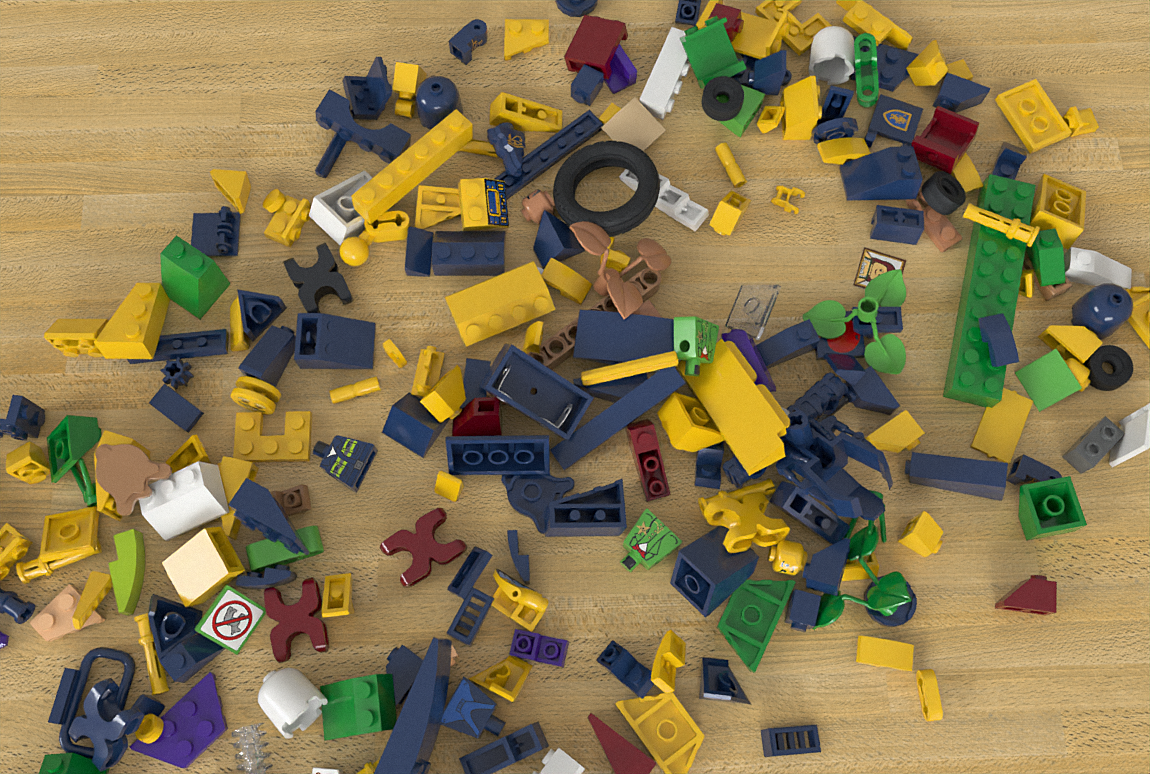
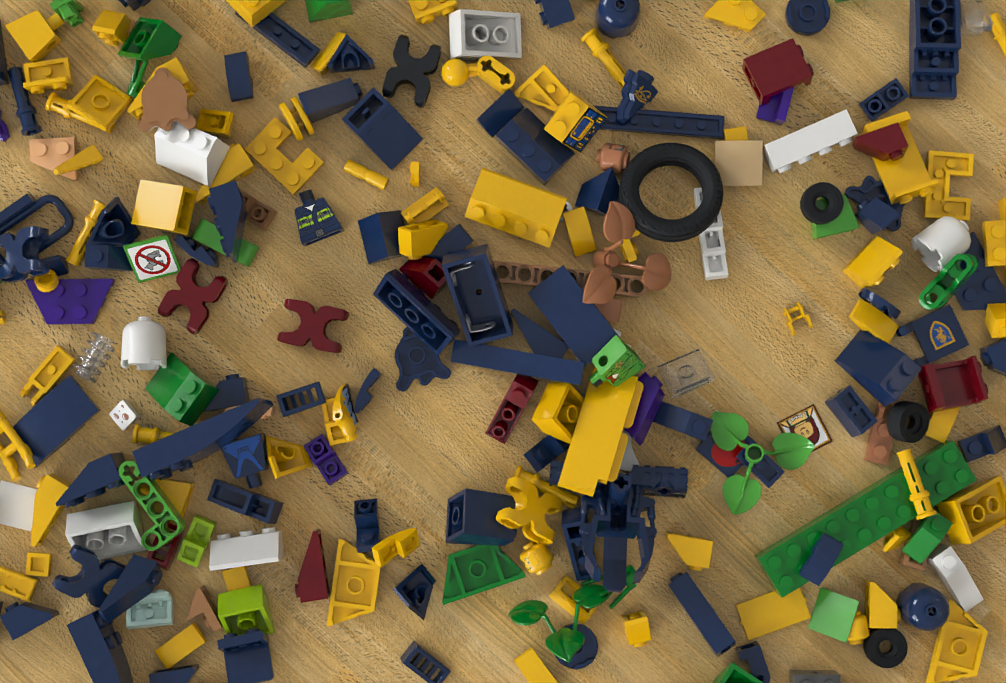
camera: 45 degrees right, 15 degrees up
(129, 570) = (116, 163): lime slope -> none
(177, 373) = (263, 46): dark blue gear -> none
(337, 595) = (230, 306): yellow slope -> none
(412, 166) = (550, 49): yellow brick -> none
(448, 486) = (366, 300): yellow slope -> none
(469, 572) = (326, 370): dark blue tile -> none
(524, 114) = (672, 77): yellow slope -> none
(533, 338) = (513, 255): yellow slope -> none
(586, 85) = (740, 95): dark blue brick -> none
(588, 514) = (436, 407): dark blue wedge -> none
(629, 368) = (554, 339): yellow axle -> none
(648, 542) = (457, 461): bright green torso -> none
(711, 51) = (852, 159): green panel -> none
(729, 162) = (783, 251): yellow piece -> none
(729, 213) = (743, 290): yellow slope -> none
(770, 118) = (845, 247): yellow slope -> none
(802, 610) = (511, 598): dark blue brick -> none
(827, 568) = (552, 589): dark blue slope -> none
(834, 103) = (898, 284): dark blue slope -> none
(846, 367) = (702, 474): dark blue slope -> none
(872, 394) = (704, 505): dark blue slope -> none

